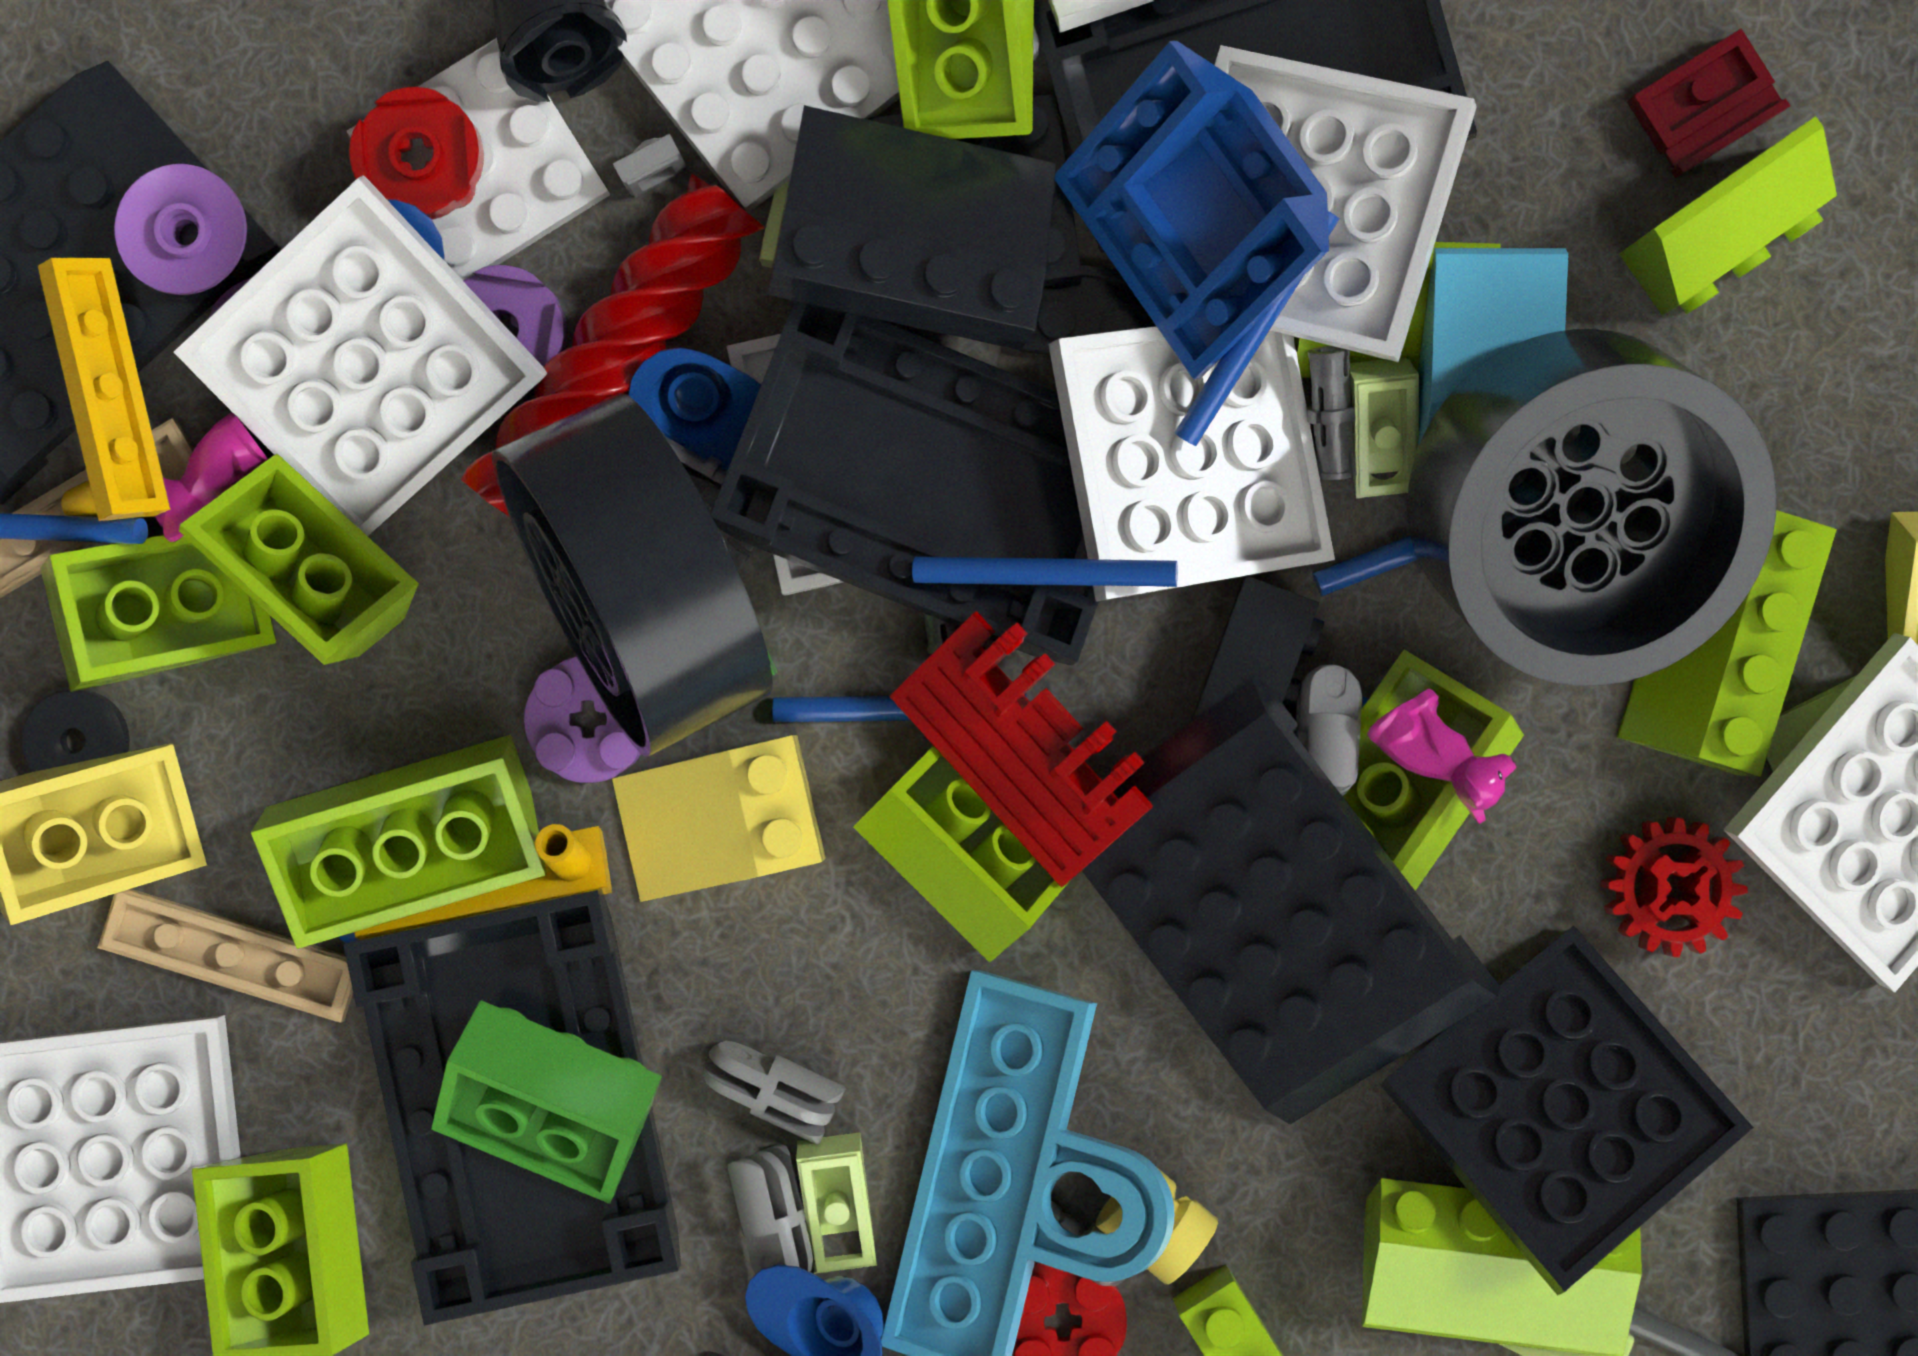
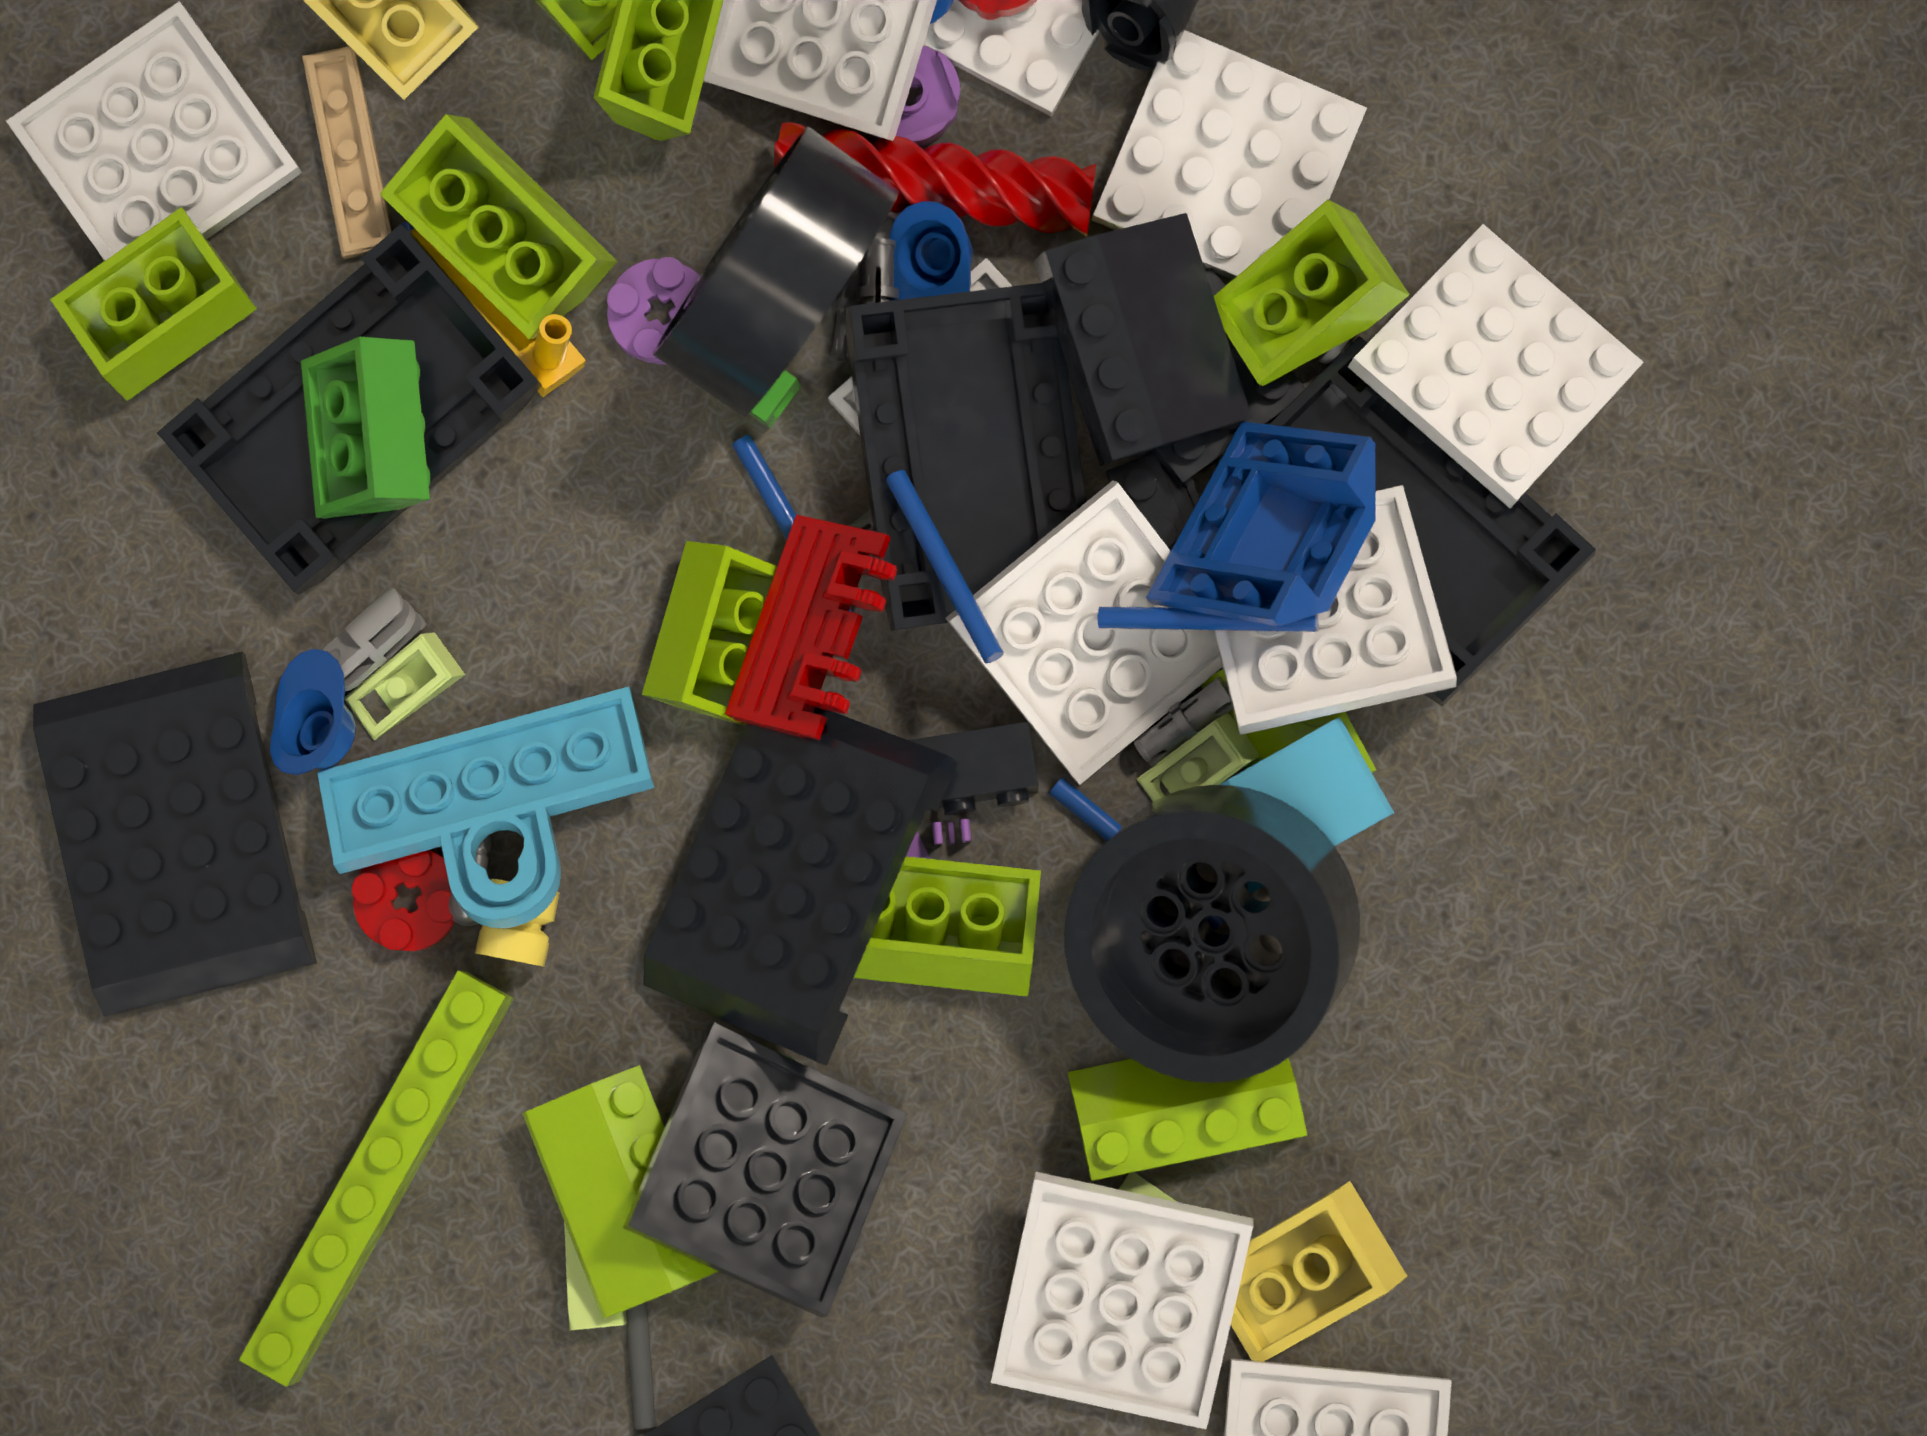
camera: 65 degrees right, 5 degrees down
(650, 165) = (1086, 131): light grey tile -> none
(719, 818) = (640, 444): light yellow slope -> none
(774, 1088) = (463, 591): light grey arm -> none
(1331, 722) = (951, 843): light grey arm -> none
(1428, 747) = (972, 914): dark pink animal -> none
(1653, 905) = (970, 1195): red gear -> none
(1708, 103) = (1577, 874): dark red plate -> none
(1735, 222) = (1496, 937): lime slope -> none

